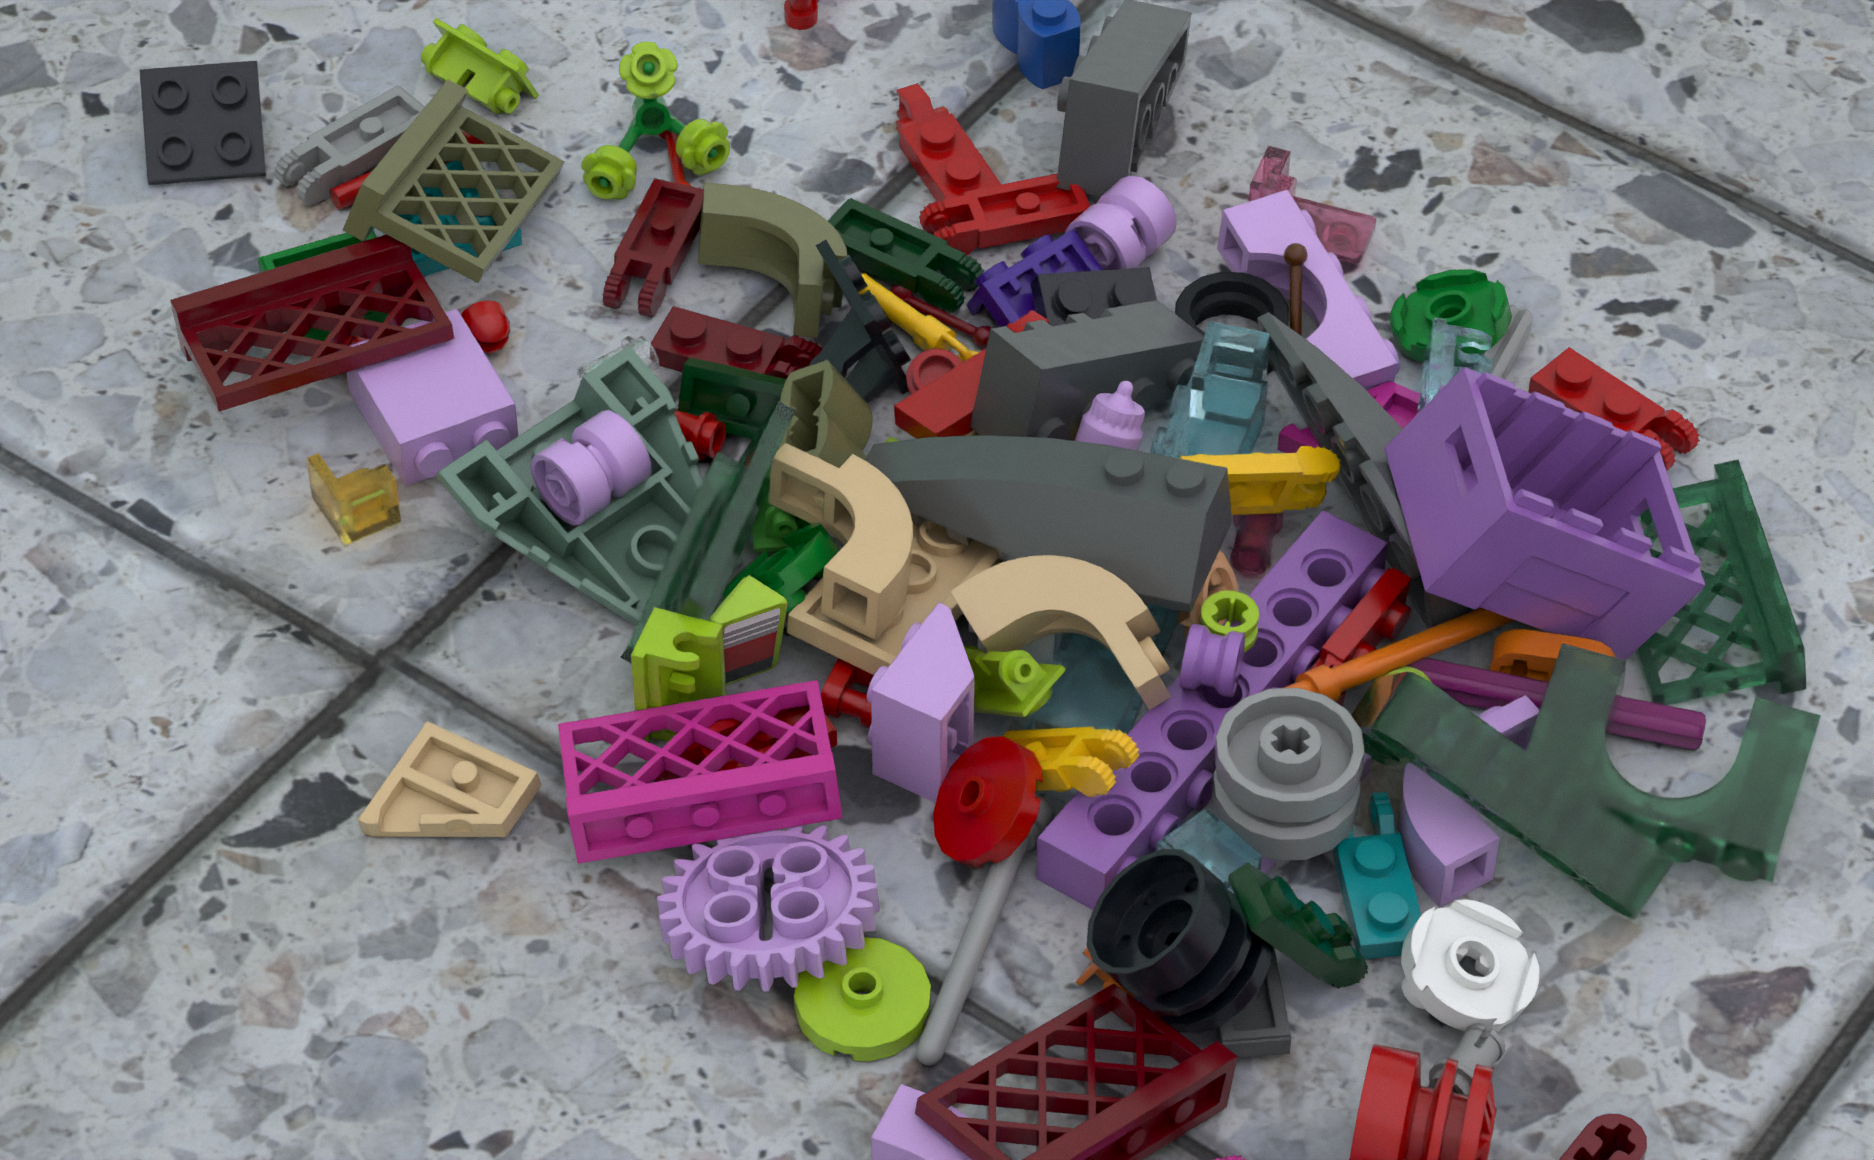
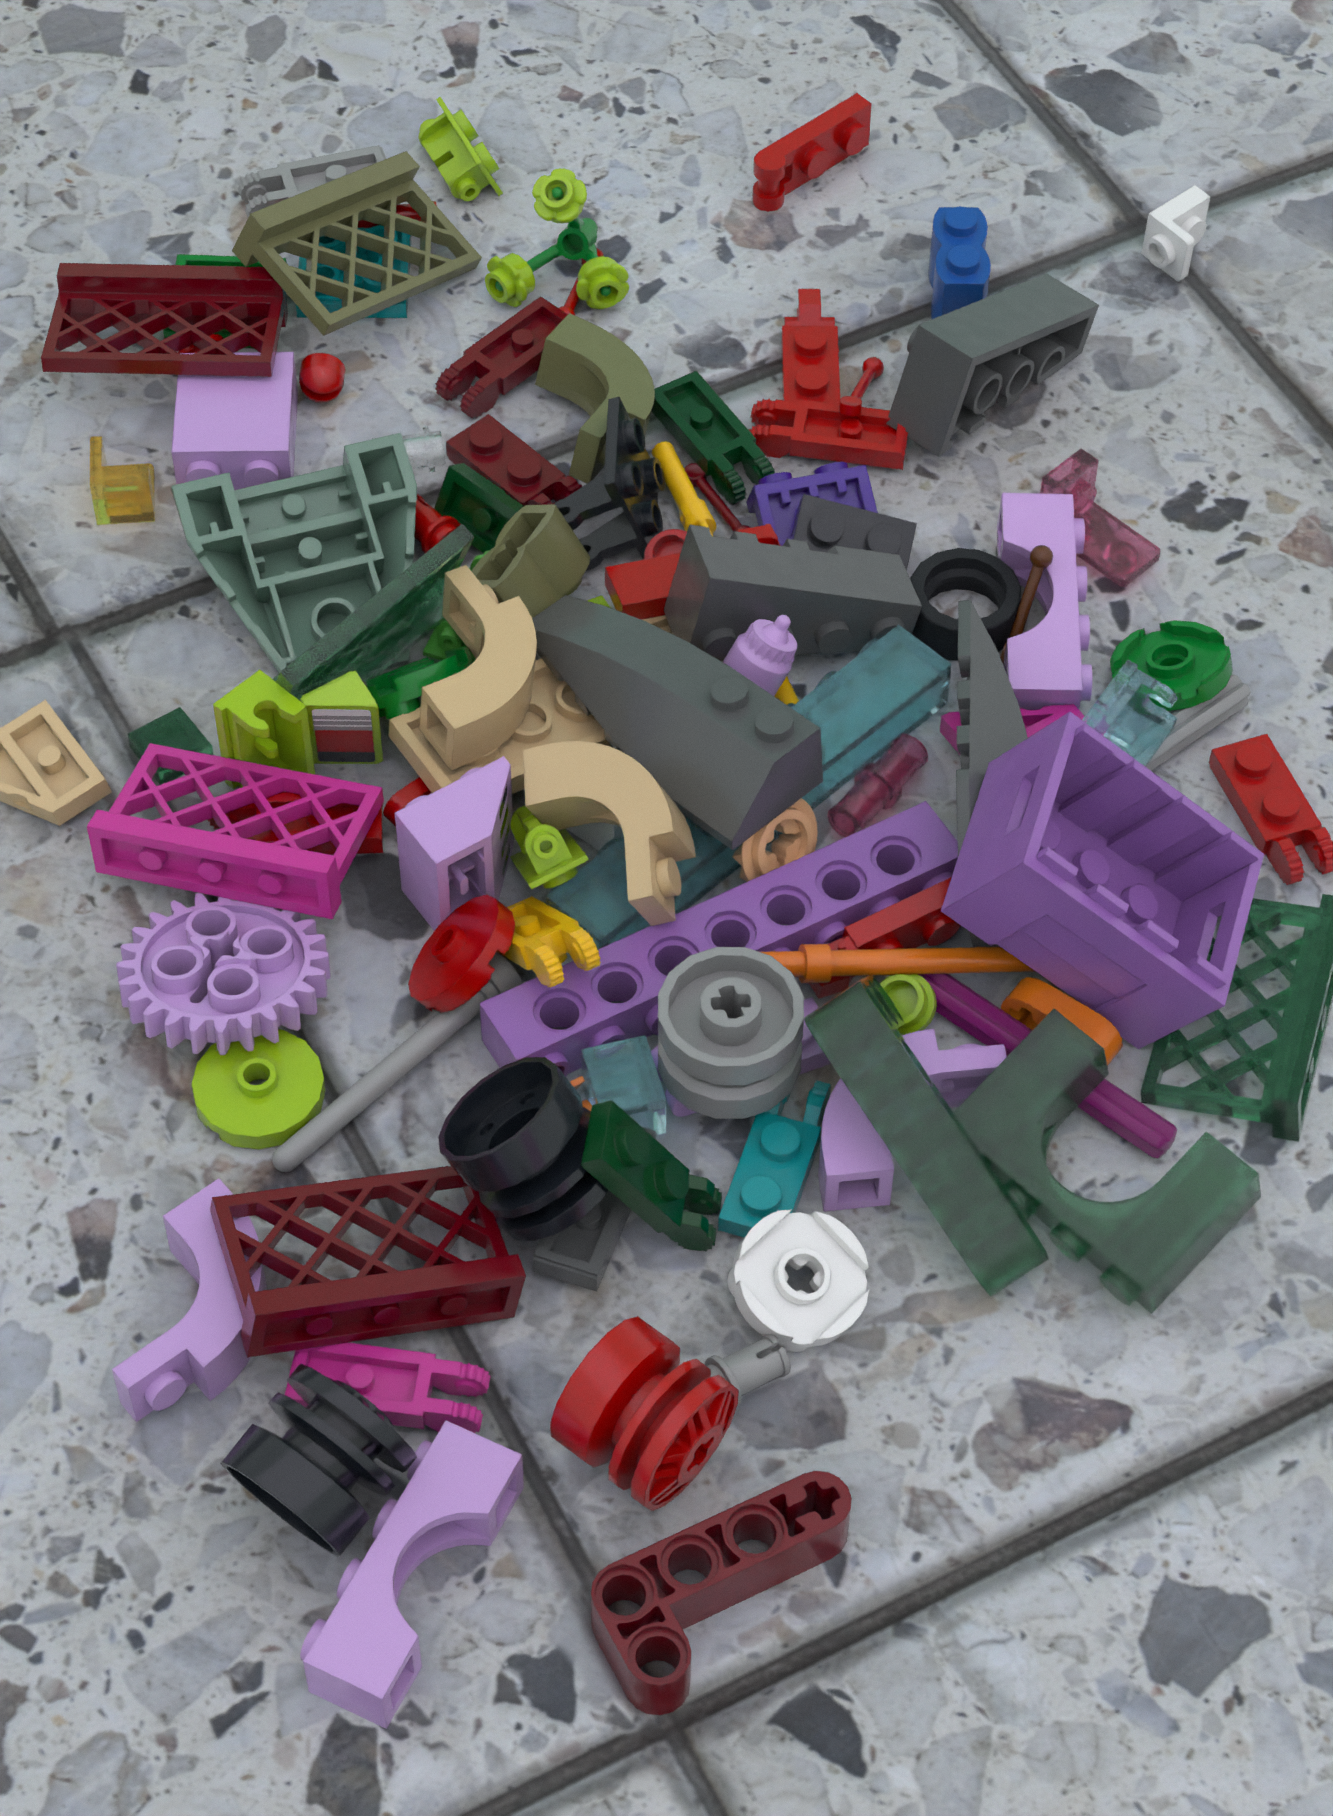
camera: 25 degrees right, 5 degrees up
(202, 122) = (202, 124): black plate -> none
(559, 707) = (169, 730): none -> clear green tile
(599, 464) = (305, 528): lavender wheel -> none
(1017, 179) = (852, 404): none -> red hinge
(1126, 224) = (921, 479): lavender wheel -> none
(1212, 660) = (724, 901): medium lavender wheel -> none
(1229, 374) = (908, 645): clear light blue panel -> none
(1231, 606) = (769, 855): lime bush -> none
(1276, 480) = (881, 754): yellow hinge -> none

